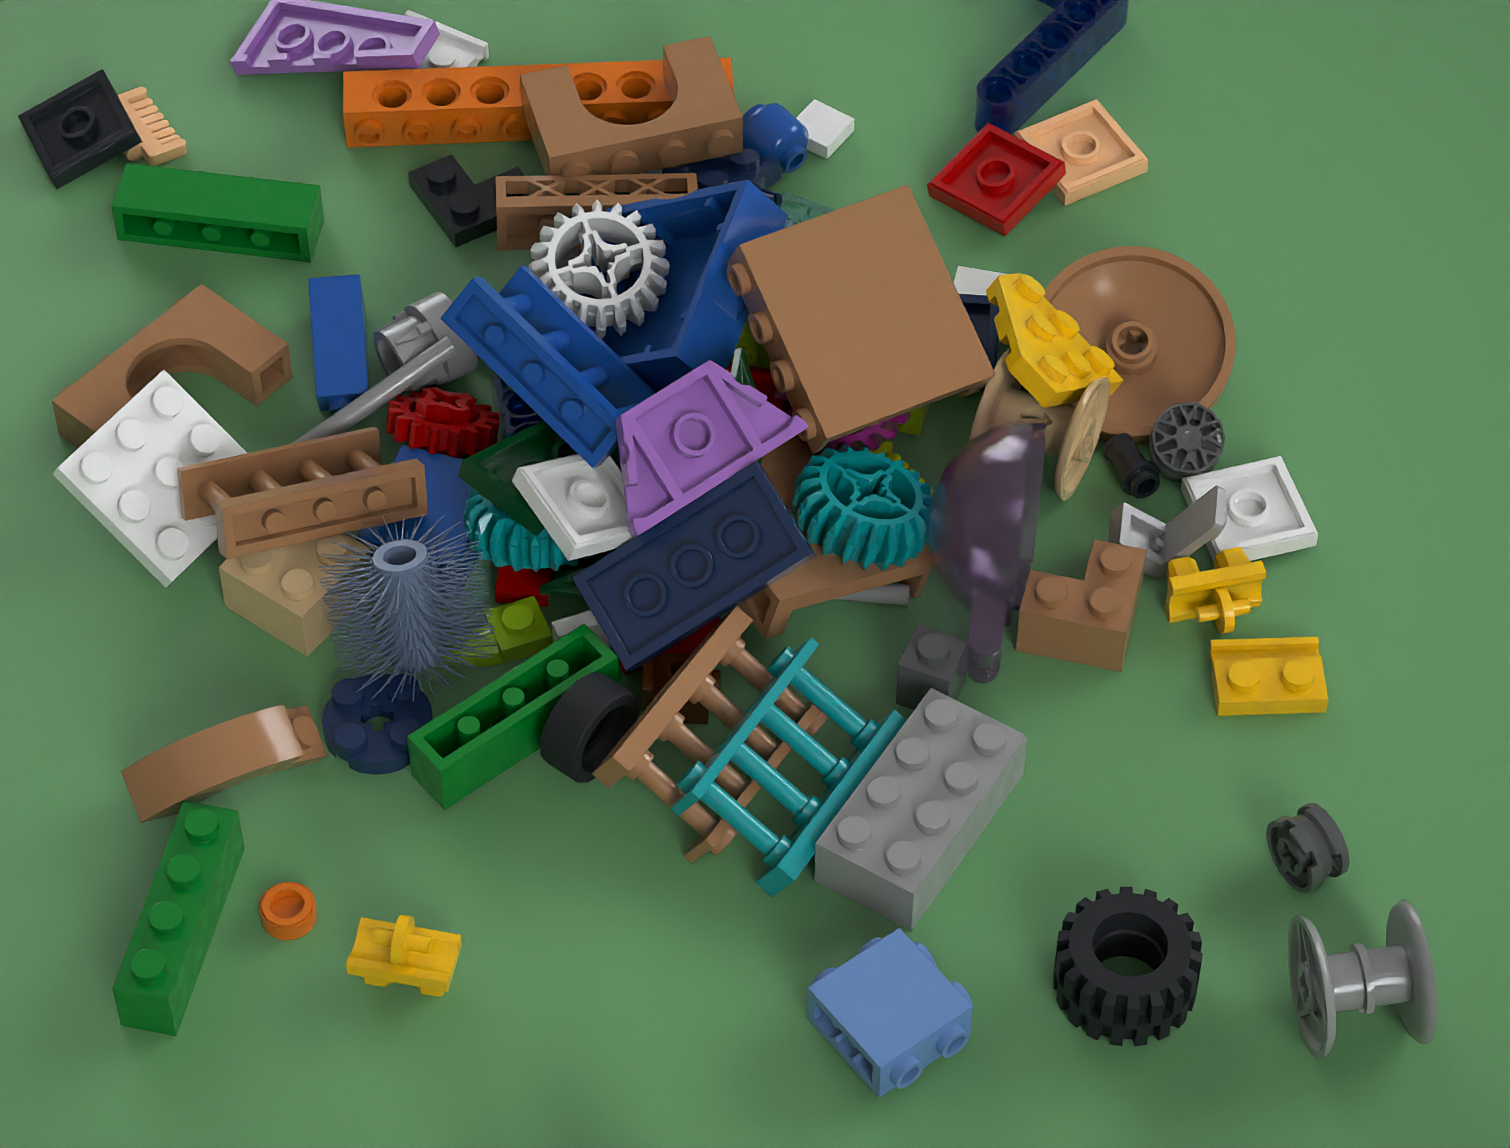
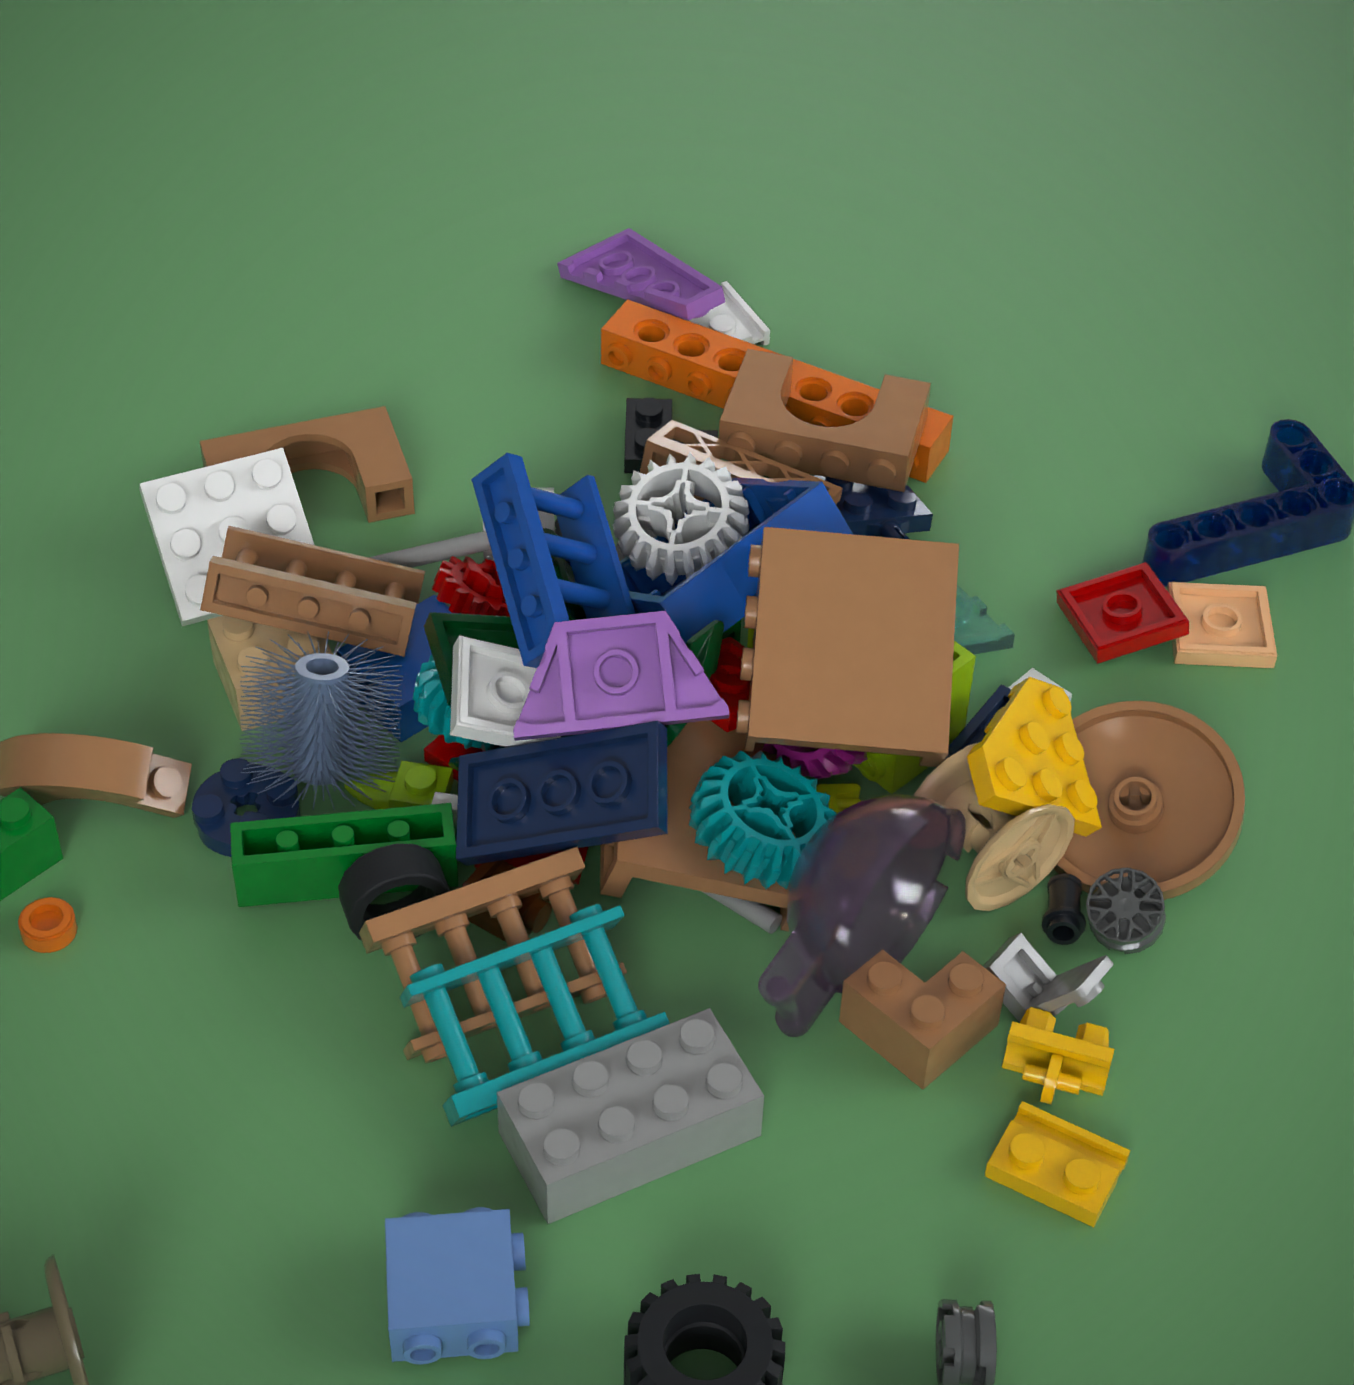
camera: 30 degrees right, 5 degrees down
(79, 128) = (403, 263): black plate -> none
(159, 140) = (454, 284): light nougat piece -> none
(218, 212) = (454, 365): green brick -> none
(339, 340) = (447, 498): blue slope -> none
(404, 955) = (93, 1009): yellow hips -> none
(776, 135) = (947, 493): blue head -> none
(825, 127) = (999, 509): white tile -> none
(931, 662) = (733, 996): dark grey brick -> none
(1260, 506) = (1151, 1003): white plate -> none

